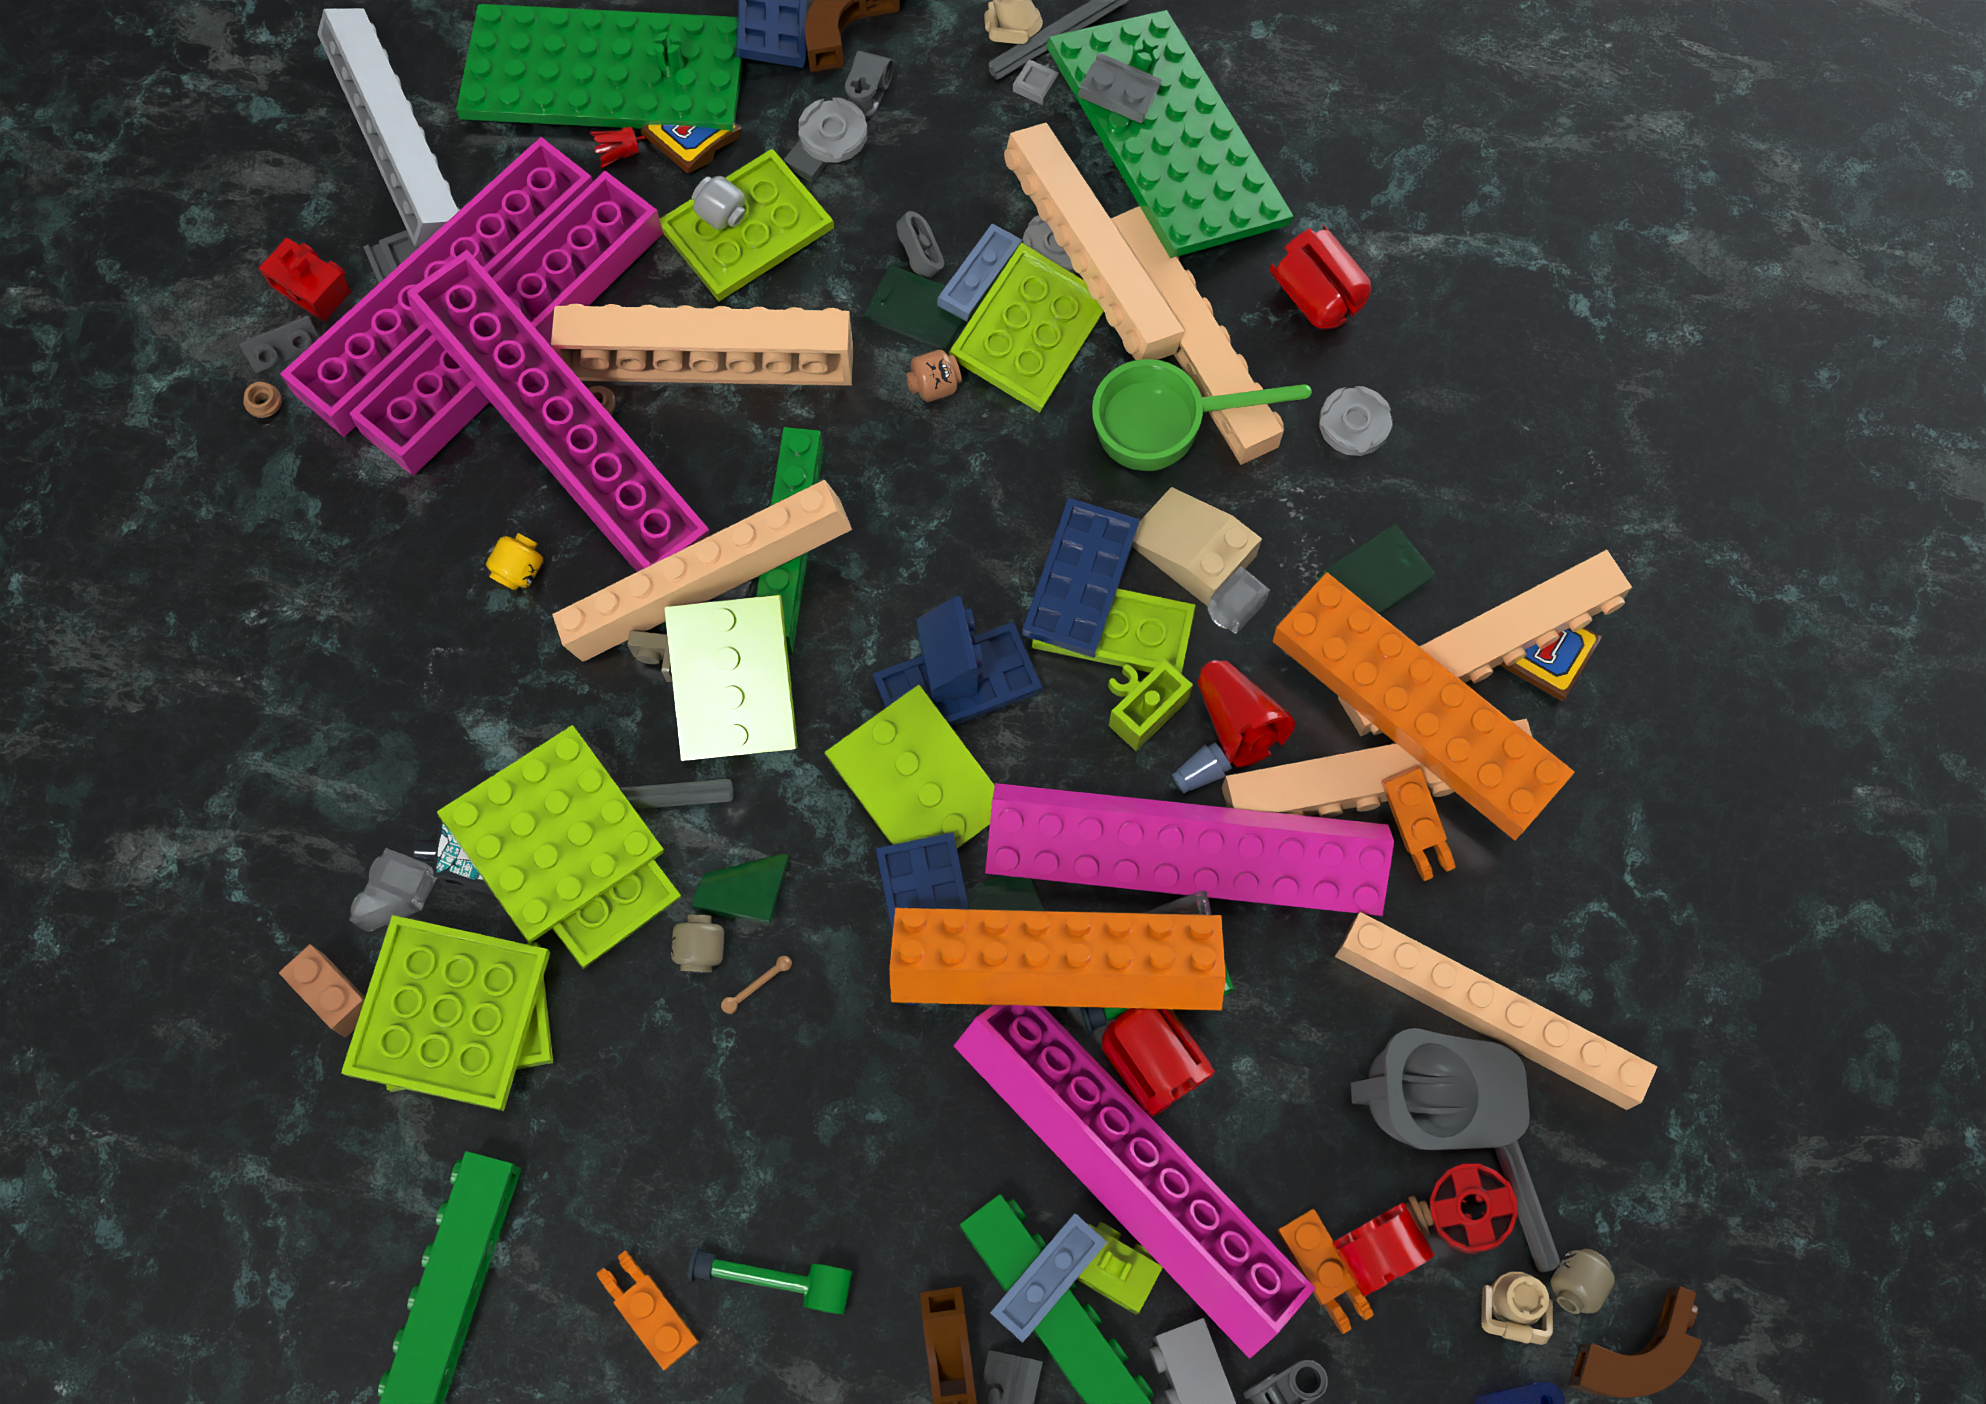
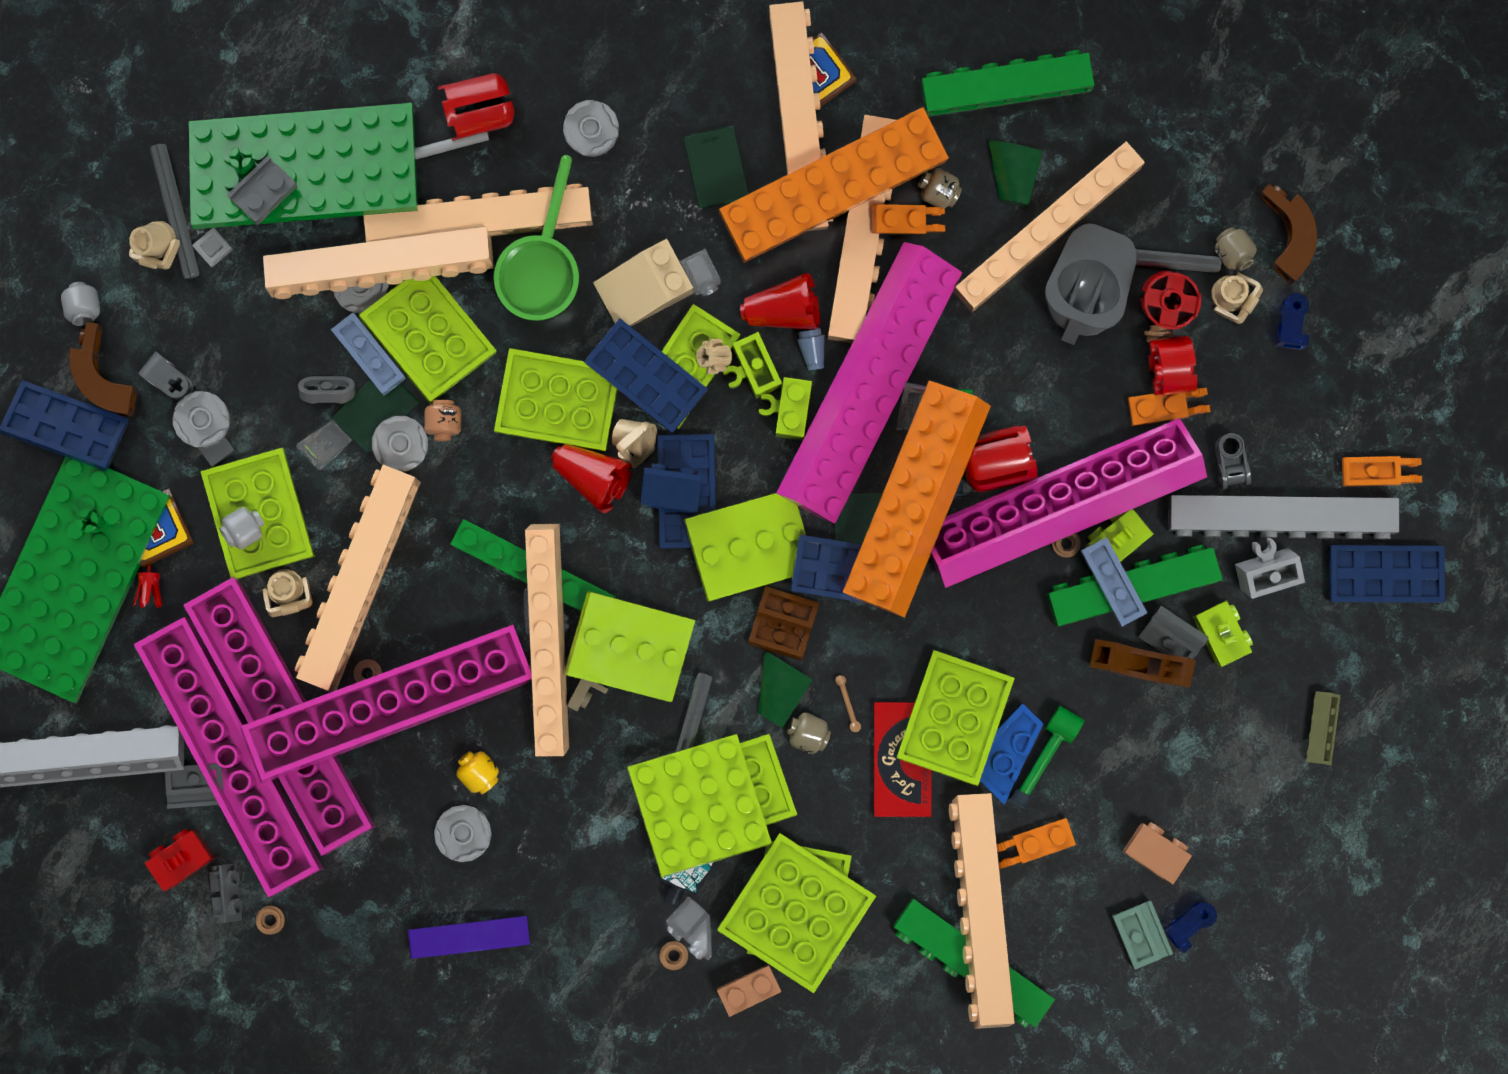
camera: 70 degrees left, 15 degrees up
(302, 624) = (468, 937): none -> dark purple slope
(342, 874) = (664, 958): none -> medium nougat plate
(434, 576) = (463, 833): none -> light grey tile
(516, 1267) = (982, 911): none -> light nougat brick
(668, 280) = (286, 589): none -> tan piece
(704, 1083) = (898, 786): none -> tile
(759, 1220) = (1009, 751): none -> blue wing
(782, 1131) = (955, 718): none -> lime plate
(833, 863) = (783, 623): none -> reddish brown slope
(851, 261) = (324, 444): none -> clear slope
(887, 343) = (400, 443): none -> light grey tile
(932, 563) = (592, 474): none -> red cone
(999, 596) = (634, 438): none -> tan piece
(1007, 492) = (555, 401): none -> lime plate
(1069, 1206) = (1075, 546): none -> medium nougat plate
(1114, 767) = (791, 408): none -> lime brick
(1139, 645) = (714, 356): none -> tan gear
(1264, 277) = (447, 145): none -> light grey bar
(1477, 850) = (939, 188): none -> dark tan head
(1544, 941) = (1014, 171): none -> dark green slope
(1653, 888) = (1007, 84): none -> green brick

